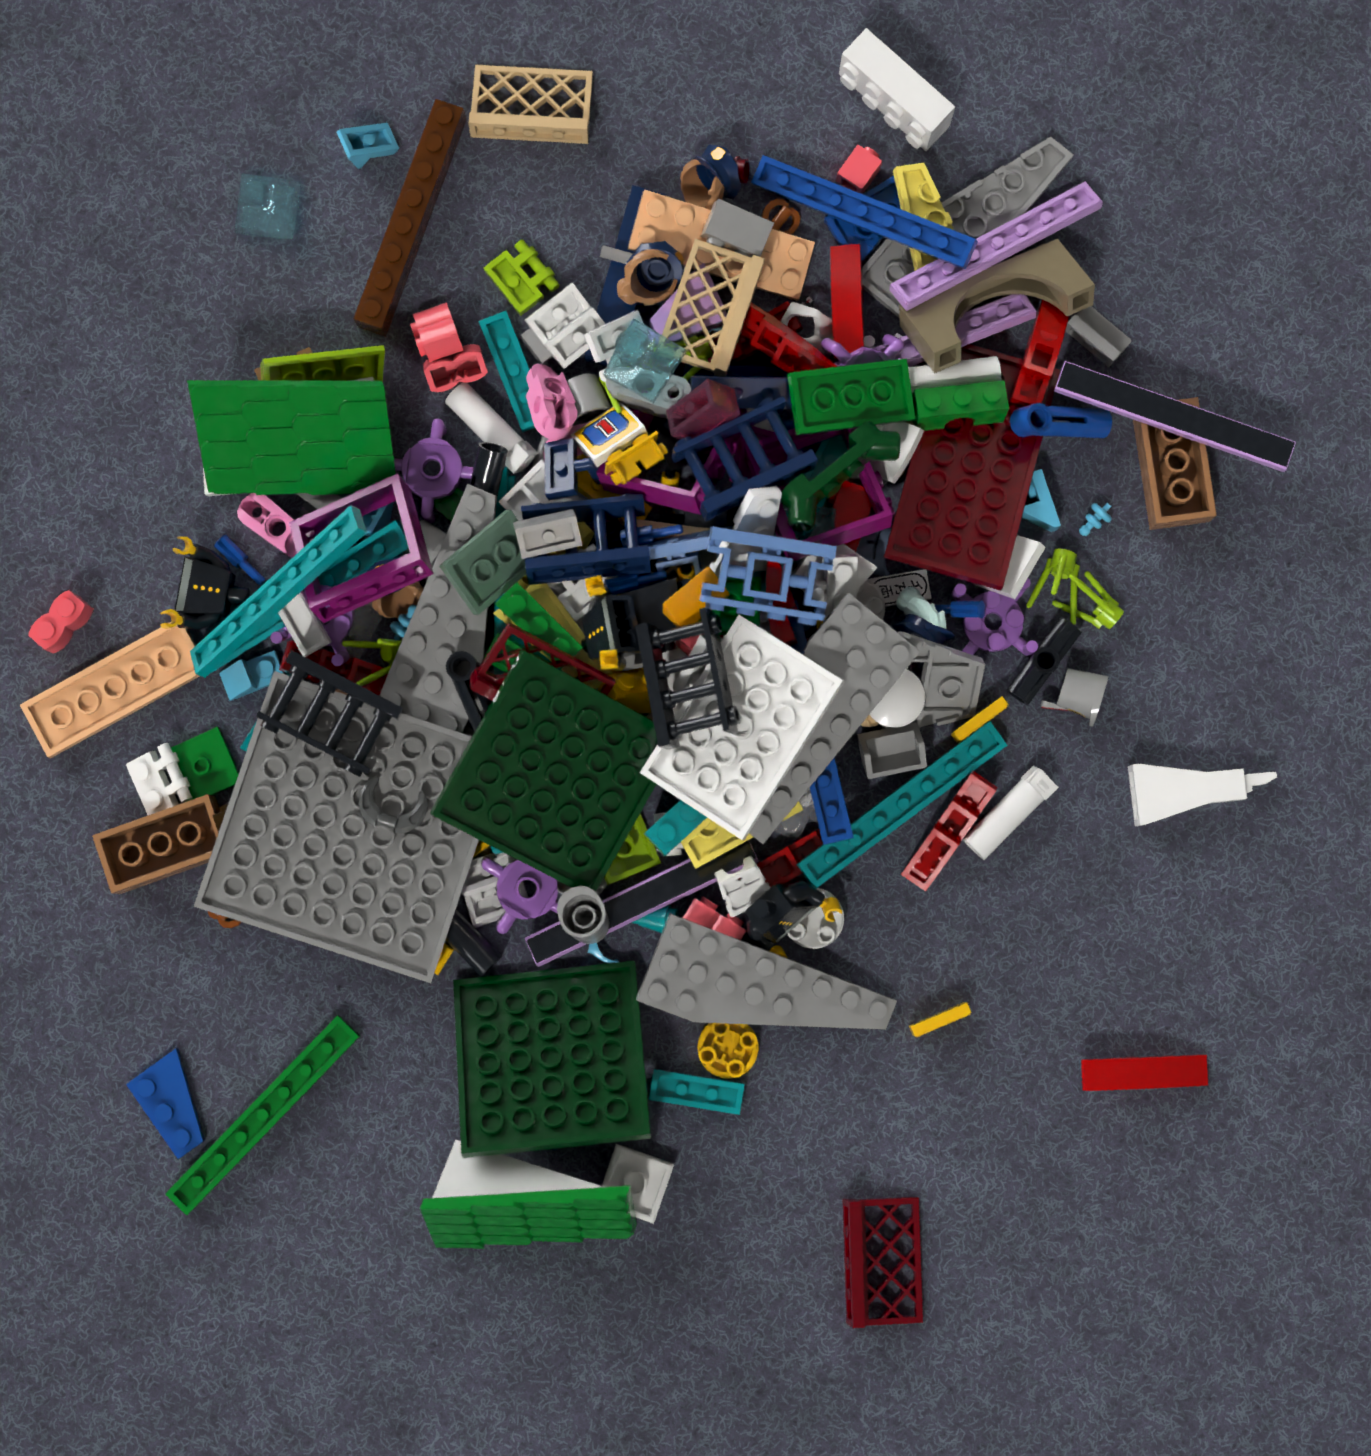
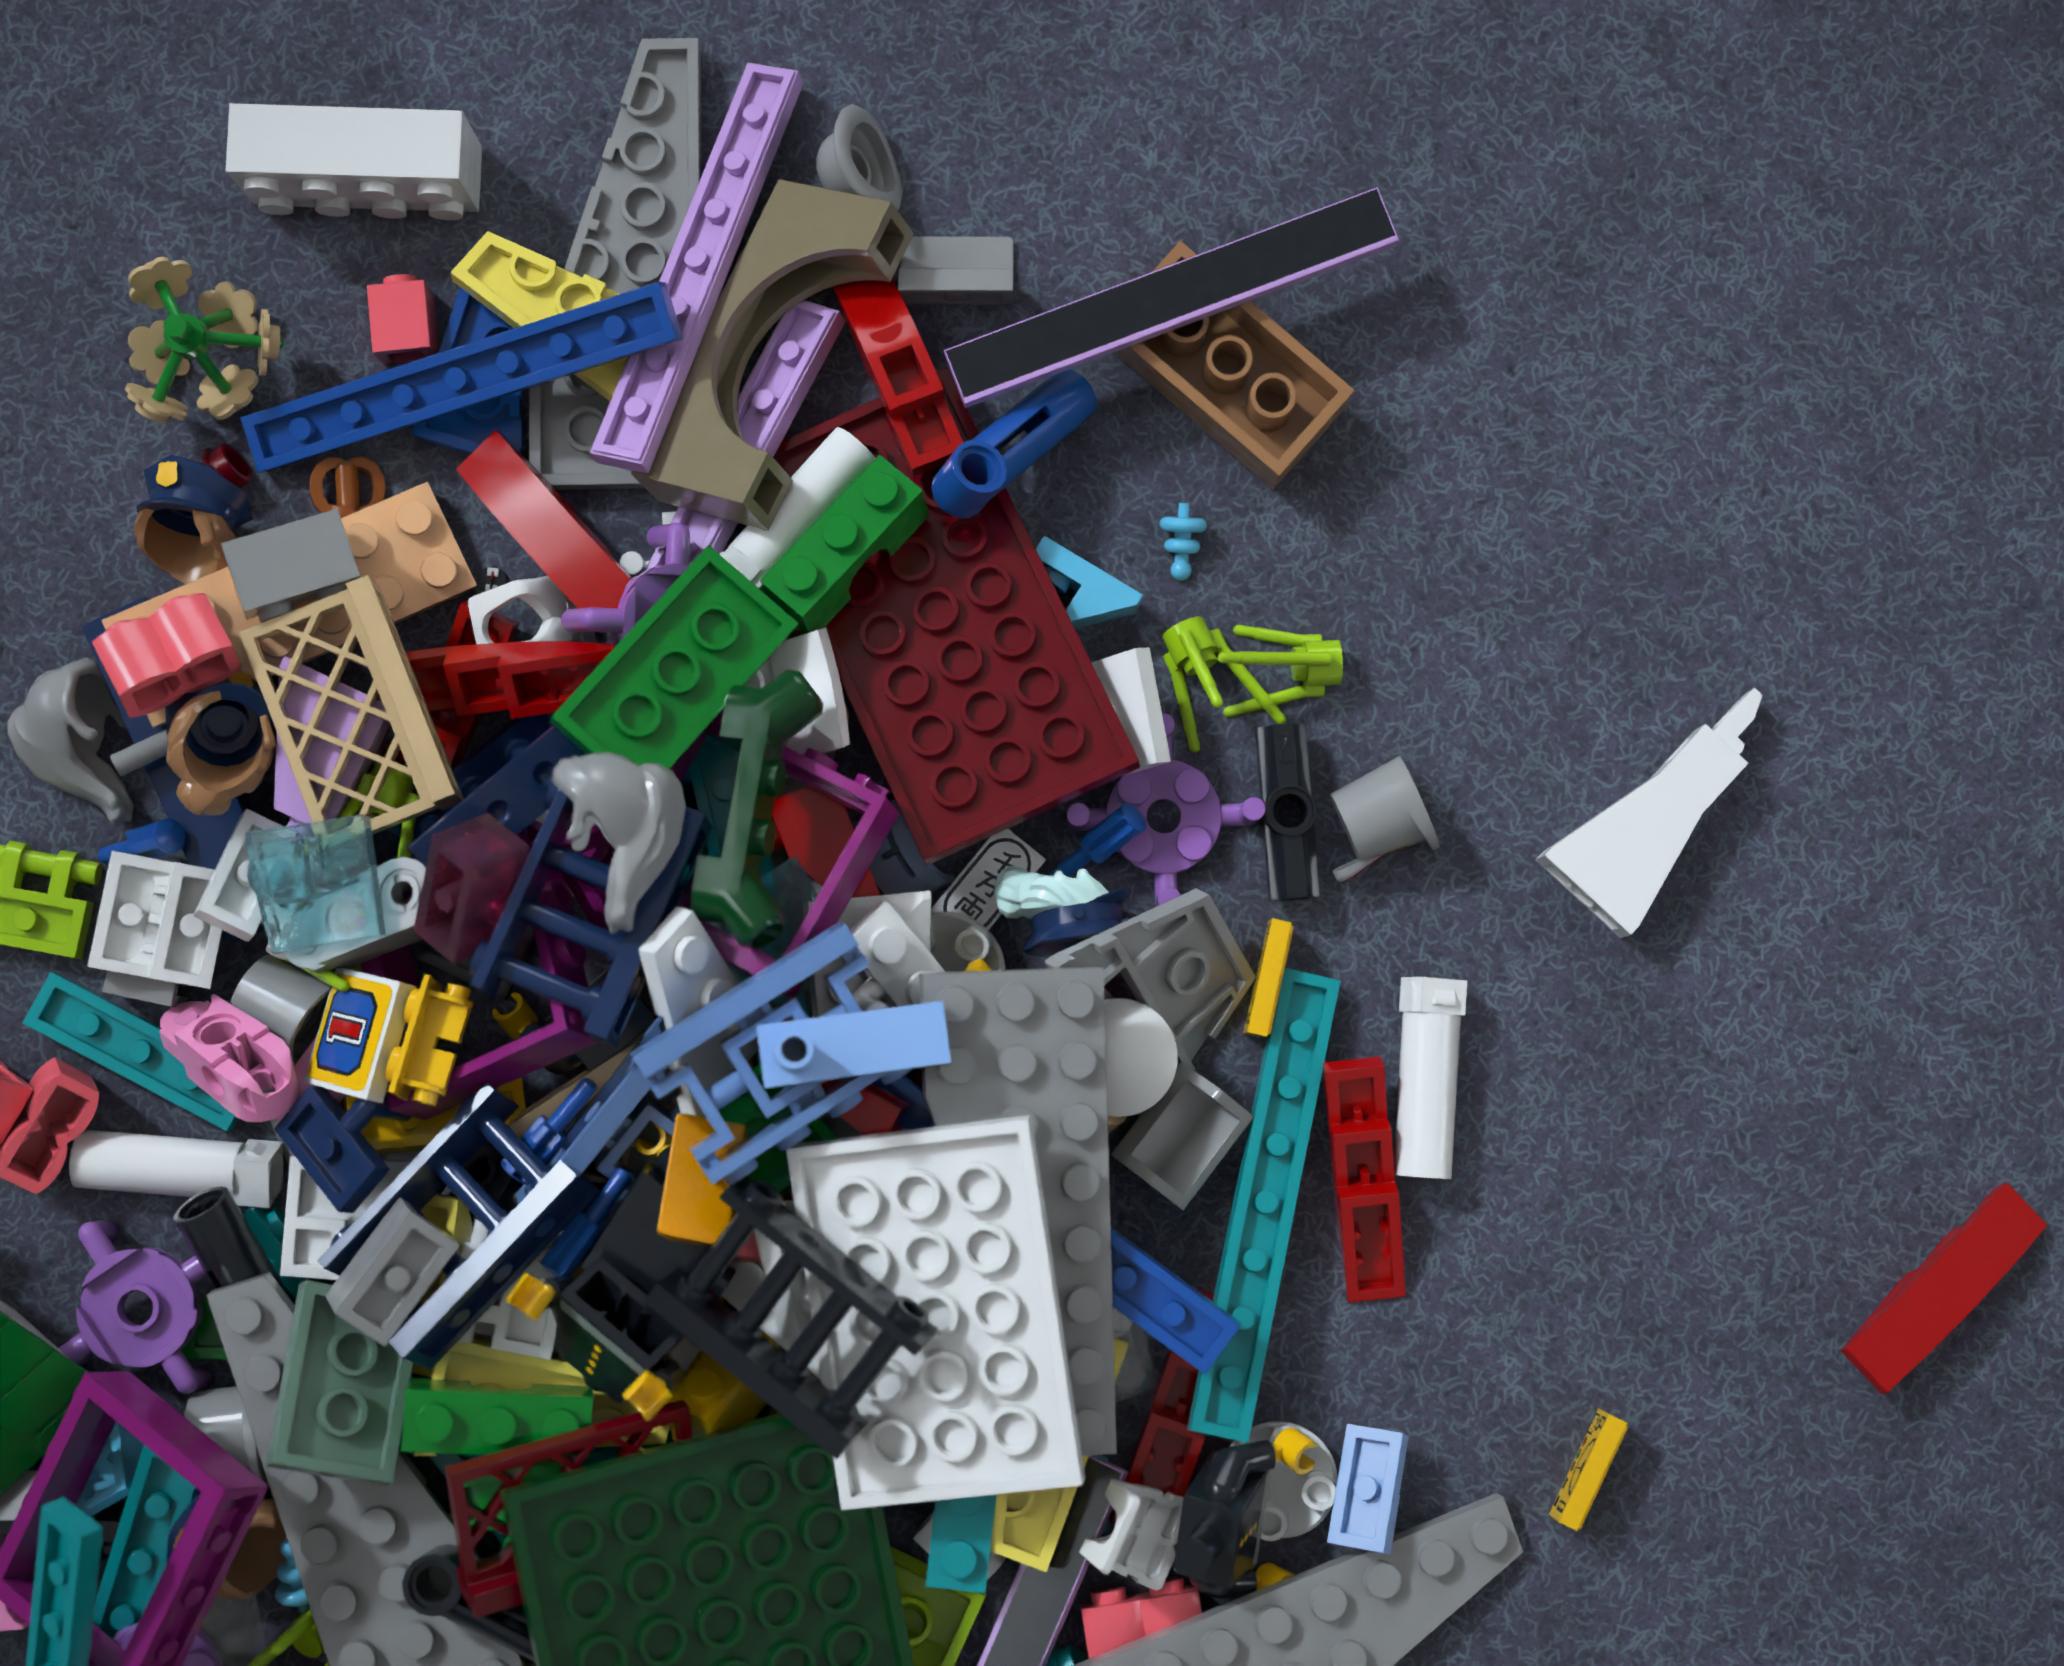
camera: 50 degrees left, 0 degrees up
(587, 221) = (62, 732): none -> light grey piece
(591, 292) = (148, 841): none -> blue axle
(660, 224) = (166, 654): none -> coral brick
(755, 102) = (169, 344): none -> tan plant
(792, 435) = (638, 814): none -> light grey piece
(800, 595) = (853, 1044): none -> light blue piece
(846, 949) = (1368, 1489): none -> light blue plate
(1097, 257) = (859, 158): none -> light grey hat

